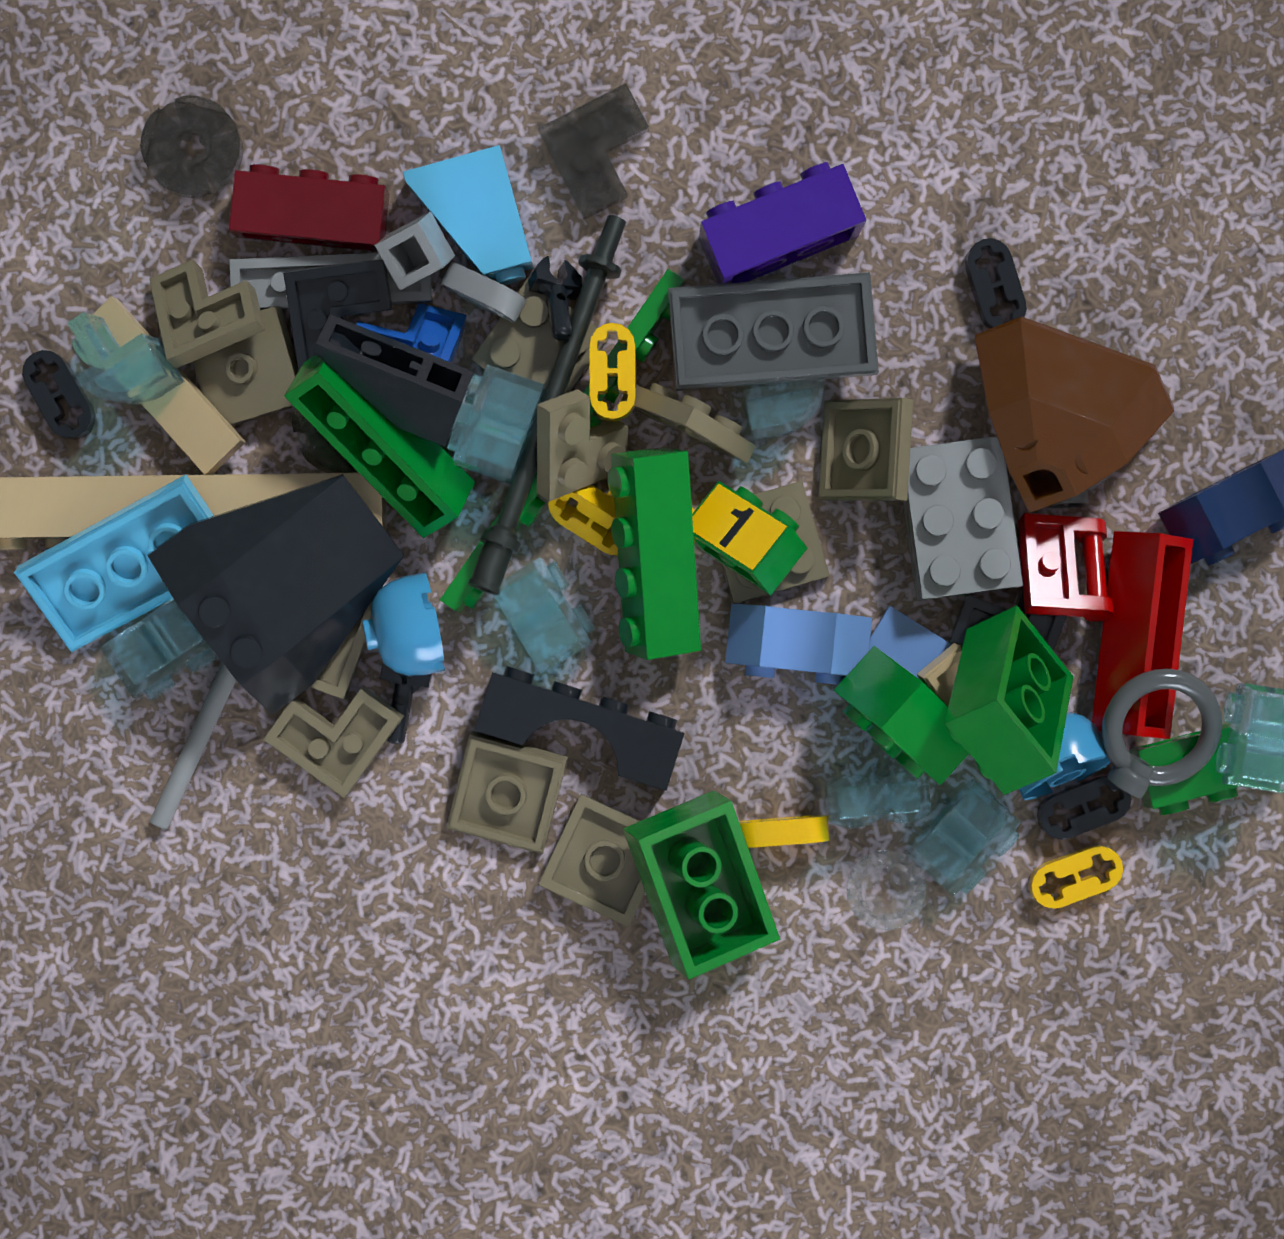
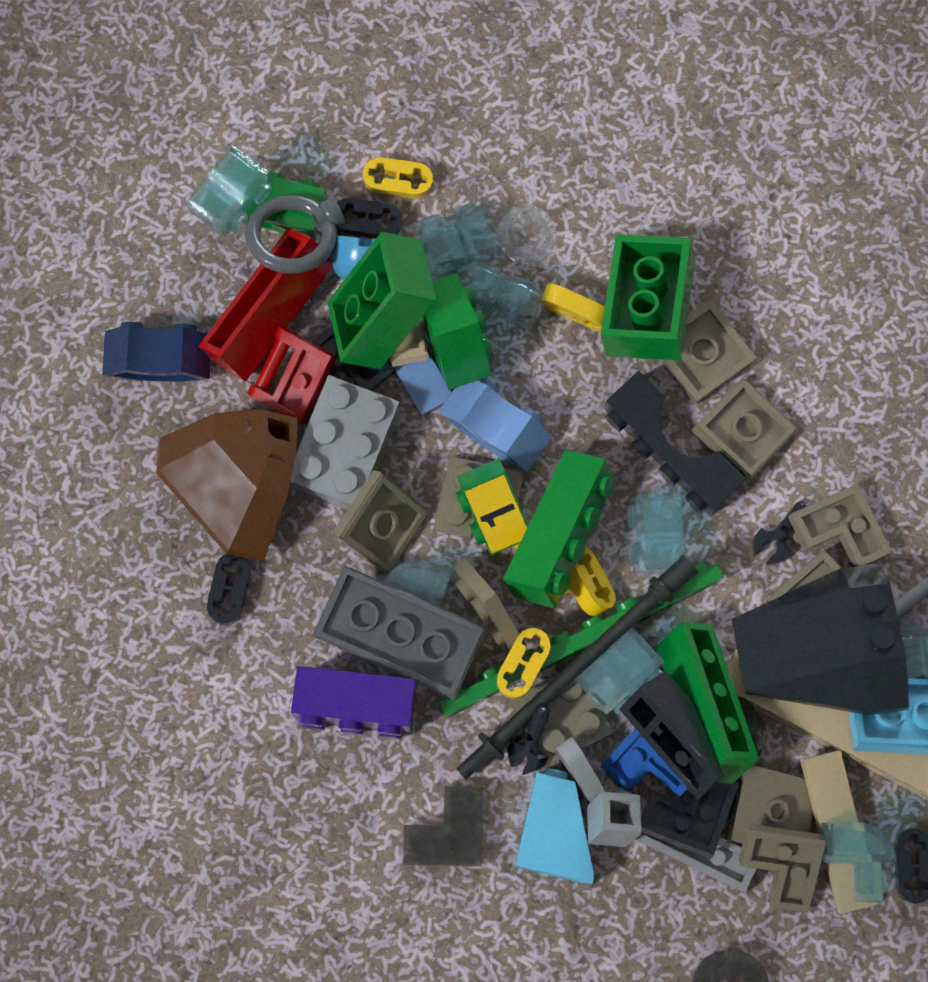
camera: 150 degrees left, 10 degrees down
(308, 208) = (670, 898): dark red brick -> none
(405, 627) = (756, 570): dark azure cylinder -> none
(569, 450) = (577, 627): dark tan plate -> none

